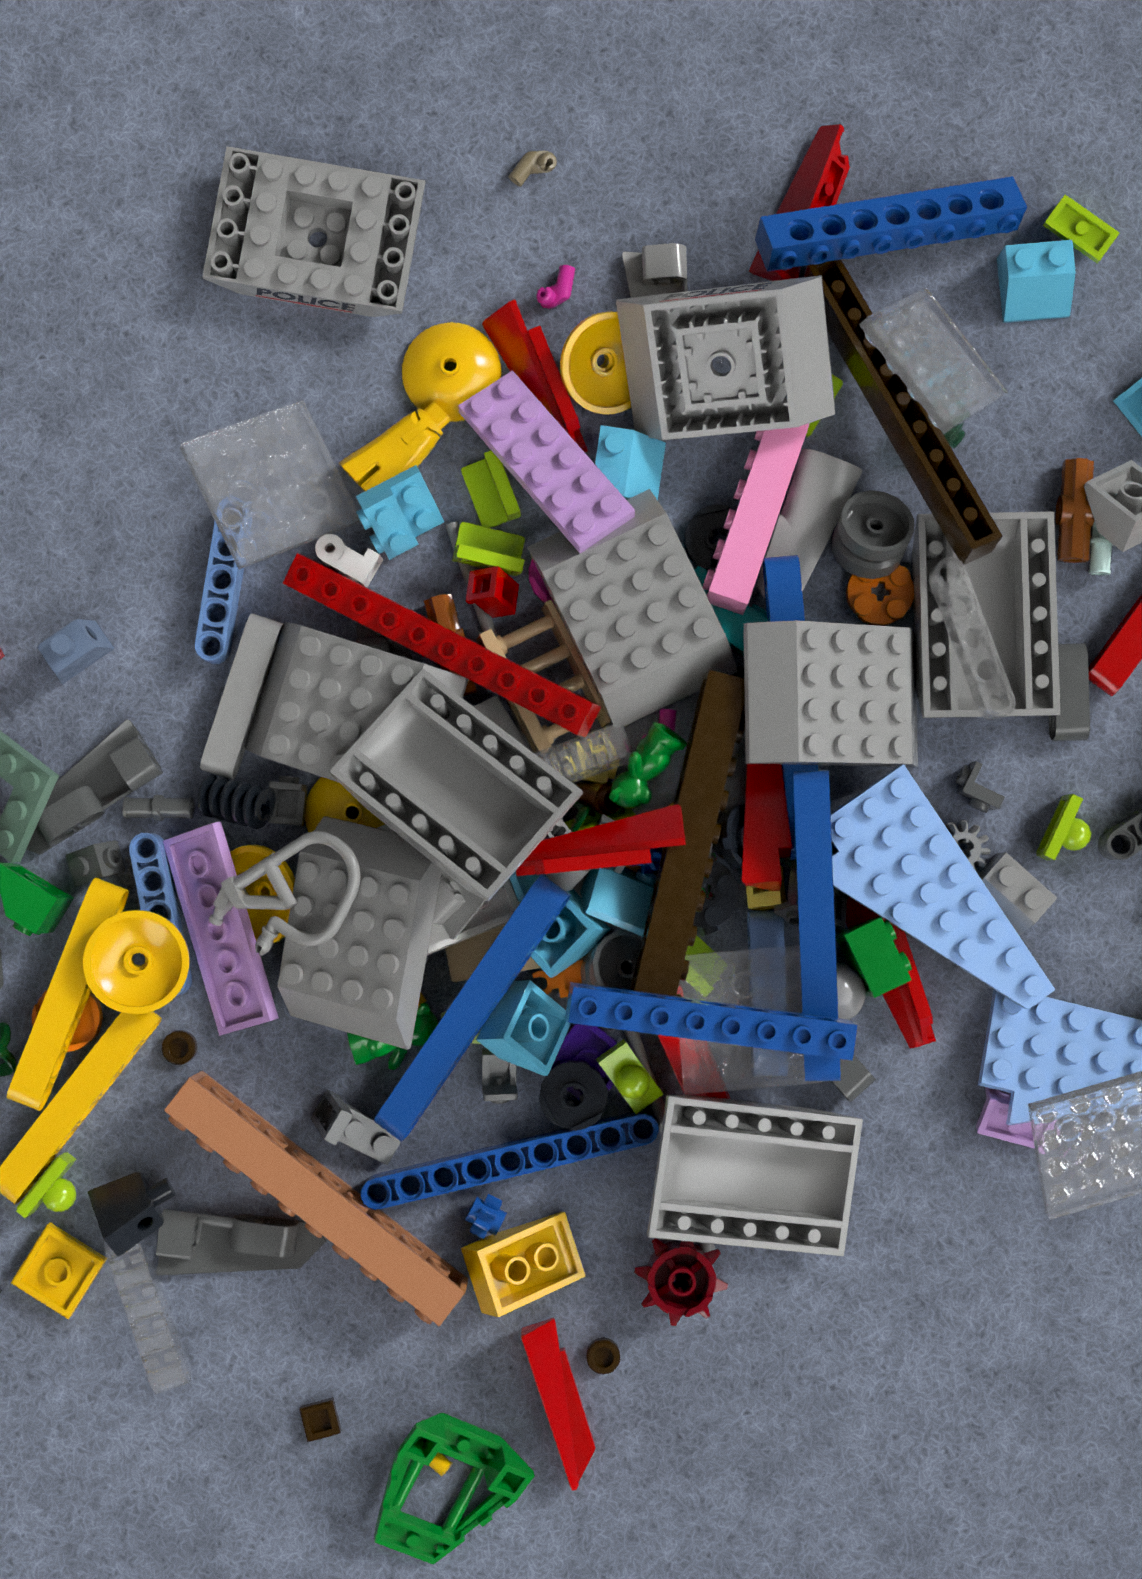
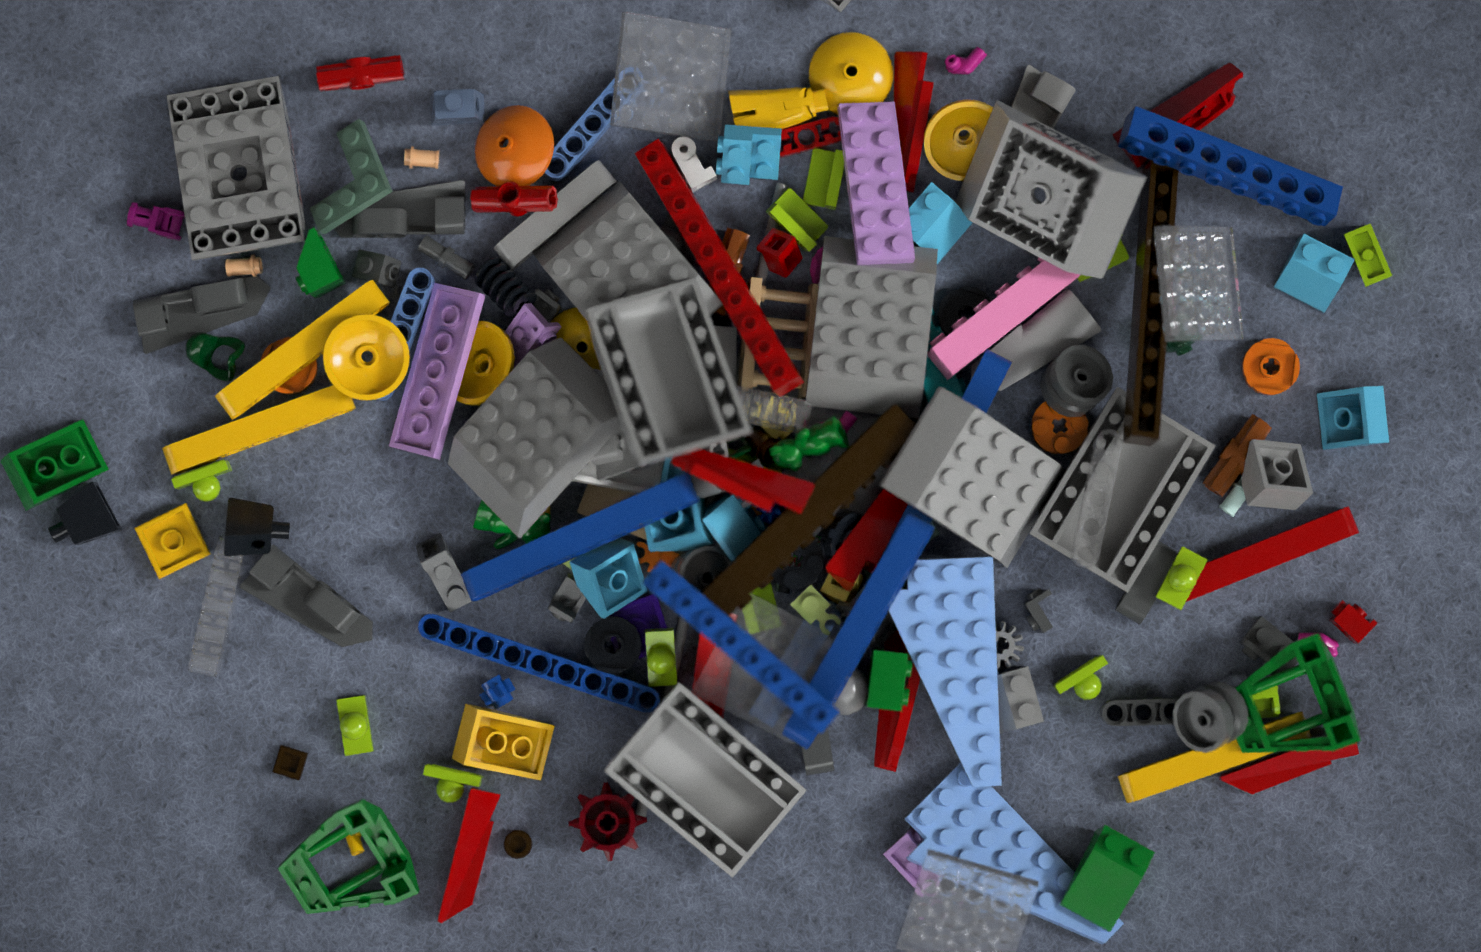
camera: 40 degrees right, 0 degrees up
(71, 723) = (421, 158): none -> light nougat pin
(171, 649) = (527, 151): none -> orange dish
(179, 1047) = (354, 437): dark brown tile -> none
(189, 705) = (514, 199): none -> red piece
(234, 893) = (465, 351): light grey piece -> none
(286, 824) = (530, 331): none -> lavender bracket
(317, 1197) = (389, 602): nougat brick -> none
(362, 1340) = (355, 725): none -> lime tile
(469, 449) = (824, 123): none -> red beam
(495, 1335) = (450, 786): none -> lime tile
(751, 929) = (812, 606): none -> yellowish green plate
(1058, 384) = (1283, 356): none -> orange plate
(1102, 666) = (1181, 578): none -> lime tile

